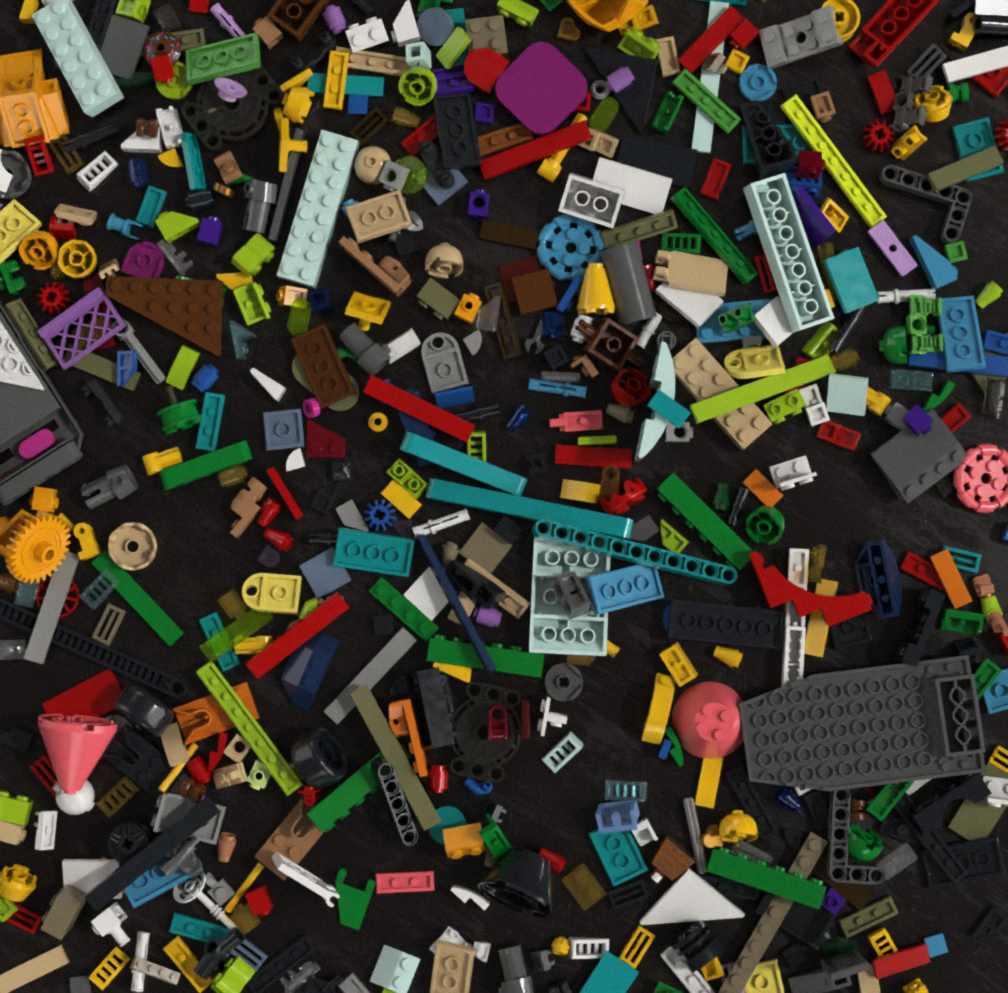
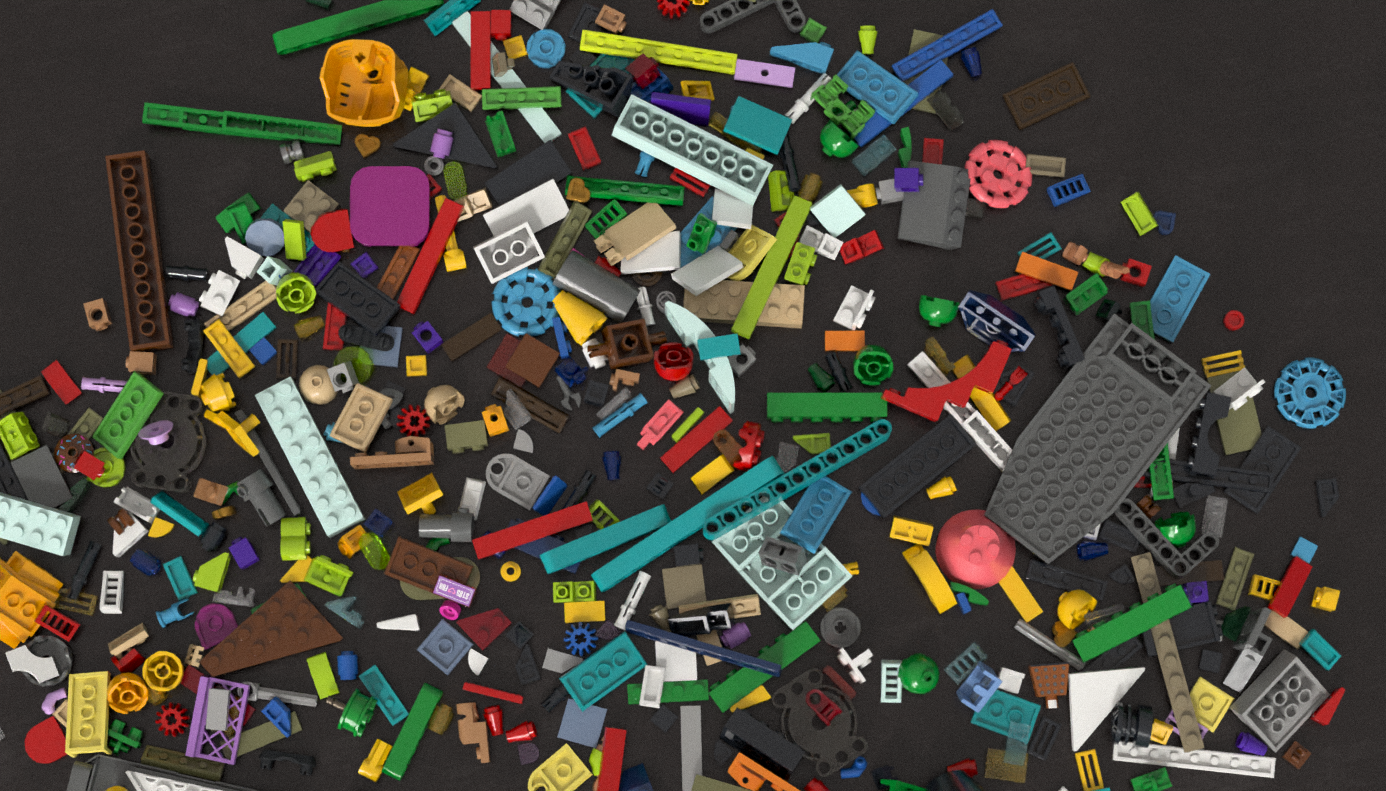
camera: 50 degrees left, 5 degrees down
(88, 321) = (218, 709): none -> light grey tile
(326, 397) = (454, 590): none -> medium lavender tile
(396, 595) = (652, 686): none -> white tile
(416, 258) = (406, 420): none -> red gear
(452, 217) = (416, 365): none -> yellow tile
(586, 766) = (919, 673): none -> green cylinder
(605, 879) = (1016, 743): none -> clear light blue slope
(680, 204) = (577, 191): none -> pearl gold tile
(715, 347) = (707, 270): none -> white tile
(848, 531) = (937, 310): none -> green cylinder
(854, 631) = (1015, 378): none -> red piece

